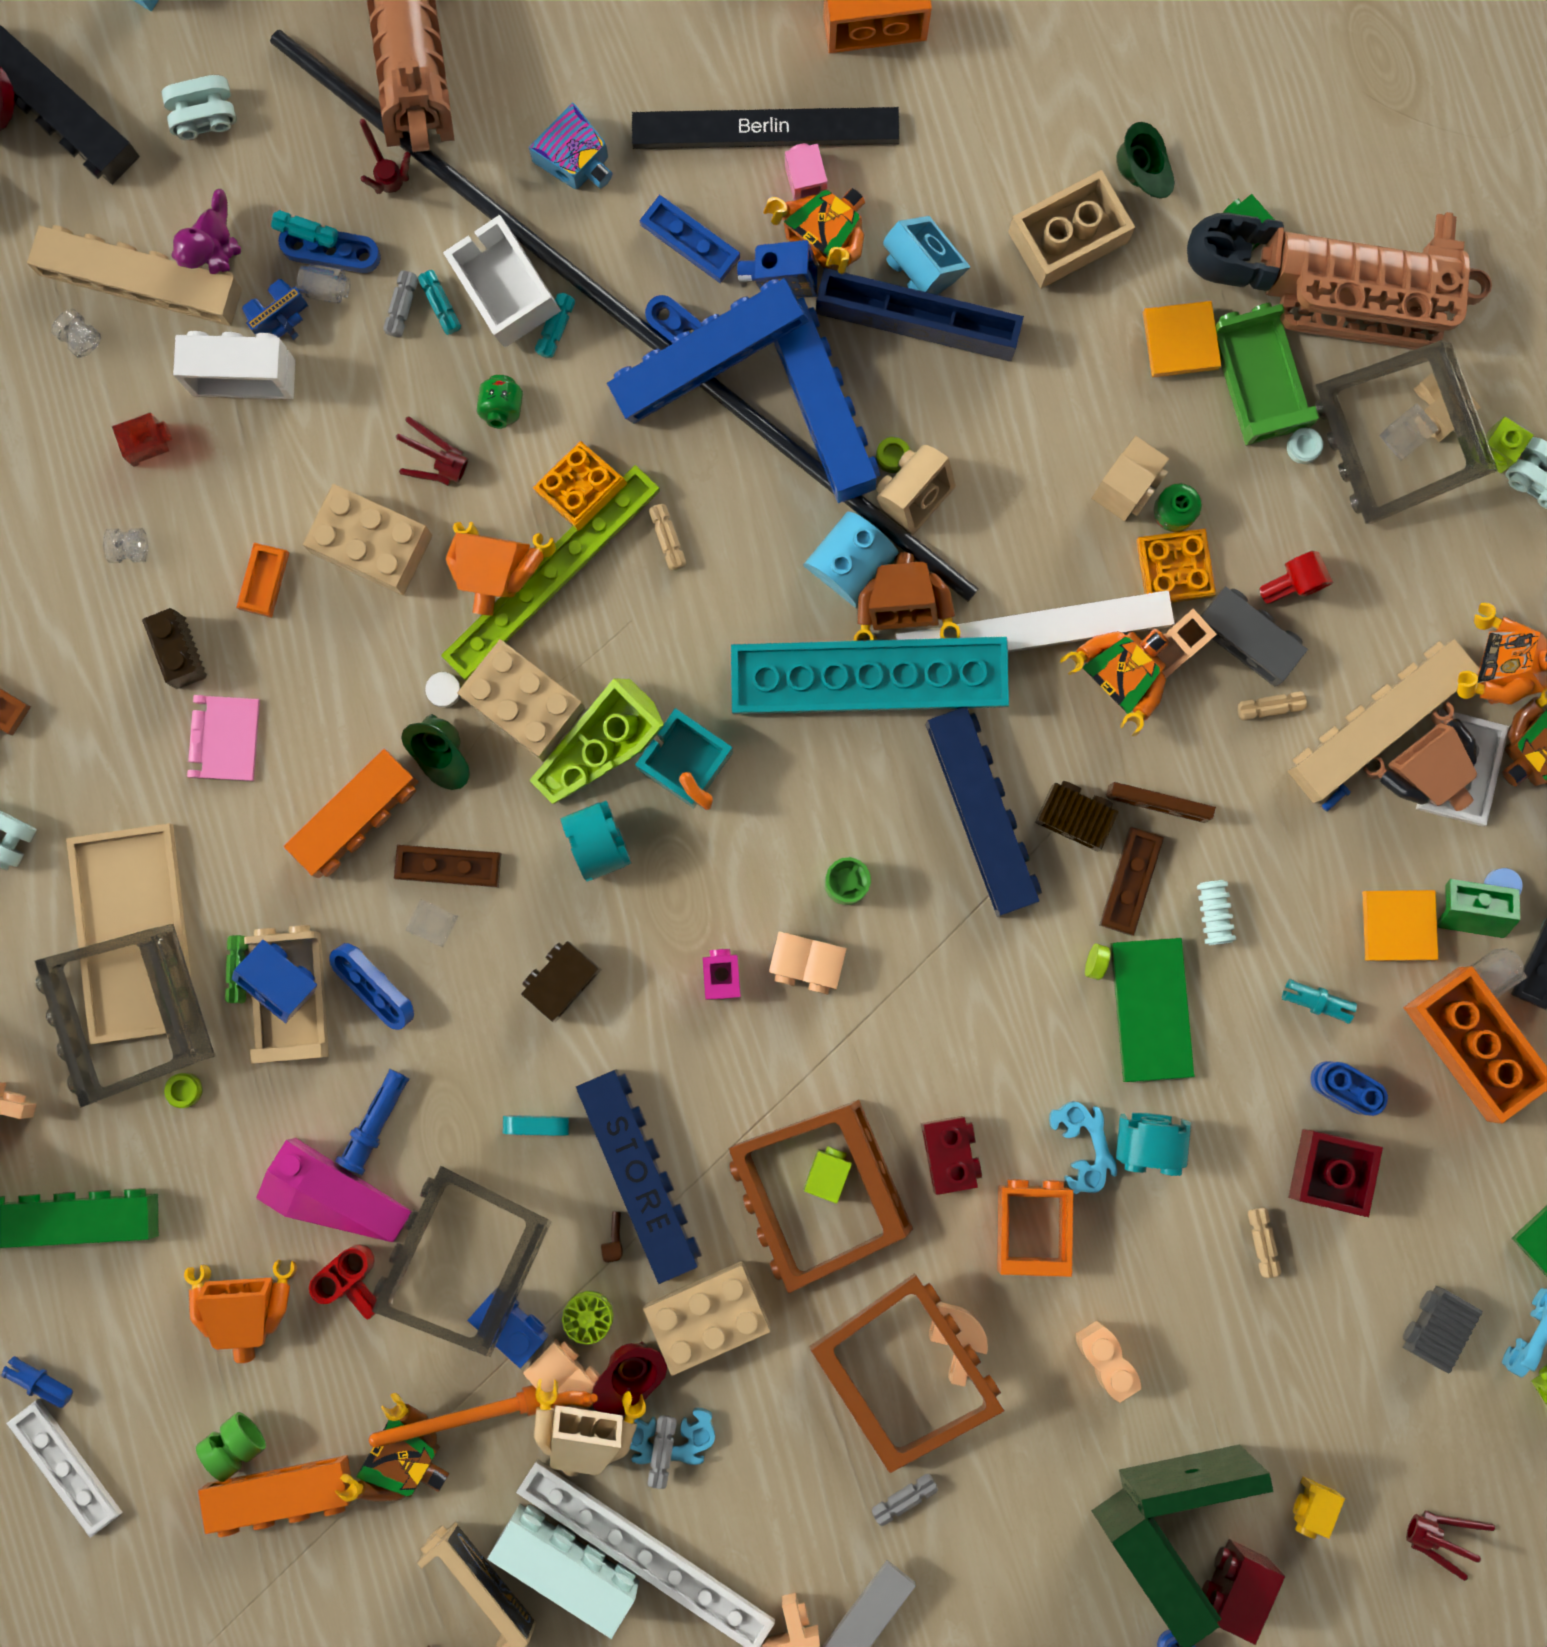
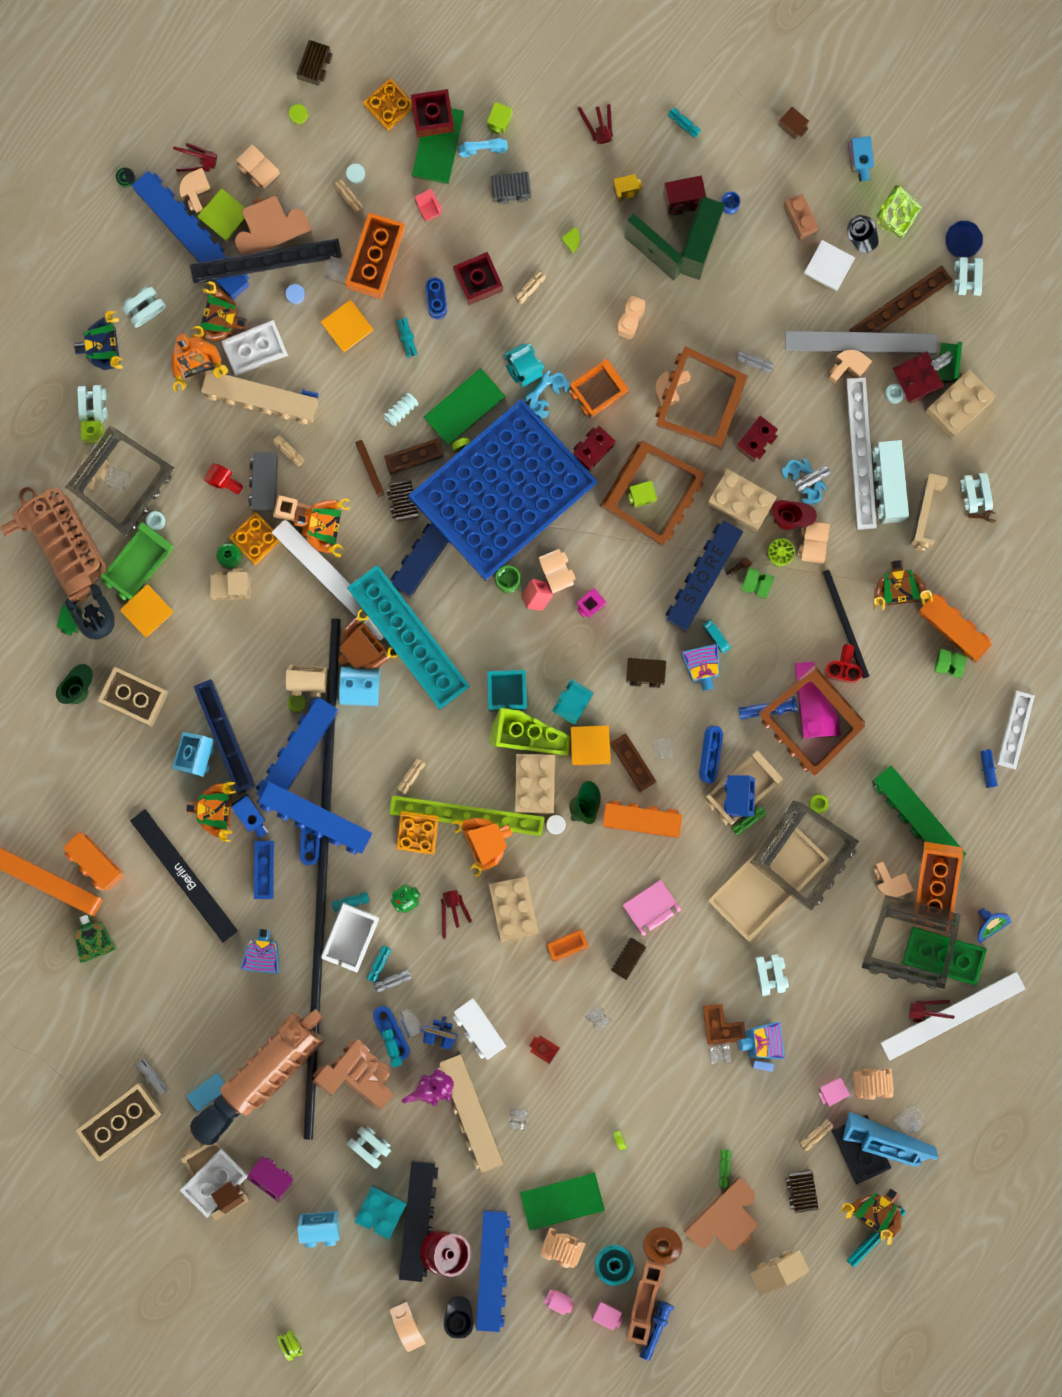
camera: 125 degrees left, 0 degrees up
(98, 57) = (381, 1212): none -> teal piece
(238, 1311) = (892, 703): orange torso -> none
(304, 155) = (359, 1072): none -> nougat brick
(361, 1226) = (838, 701): none -> dark orange windscreen
(386, 172) = (336, 1034): dark red plant -> none
(406, 1332) = (845, 622): none -> black piece
(508, 1073) = (702, 665): none -> torso
(511, 1282) = (791, 591): clear smoke windscreen -> none
(517, 821) = (590, 745): none -> light orange tile
(520, 1335) = (811, 578): blue brick -> none
(523, 1402) = (836, 552): orange piece -> none
(568, 1246) = (757, 583): none -> bright green wheel
(576, 1398) = (817, 530): orange piece -> none
(583, 1438) = (831, 514): tan torso -> none
(692, 789) = (519, 672): orange piece -> none
(783, 1413) = (757, 438): none -> dark red brick
(794, 907) = (537, 594): none -> coral panel
(805, 170) = (193, 840): bright pink brick -> none
(986, 972) = (503, 489): none -> blue plate
(1293, 1361) = (572, 239): none -> lime tile
(1434, 766) = (266, 360): nougat torso -> none
(1480, 908) = (313, 297): green panel -> none
(1502, 1182) = (428, 205): none -> coral panel

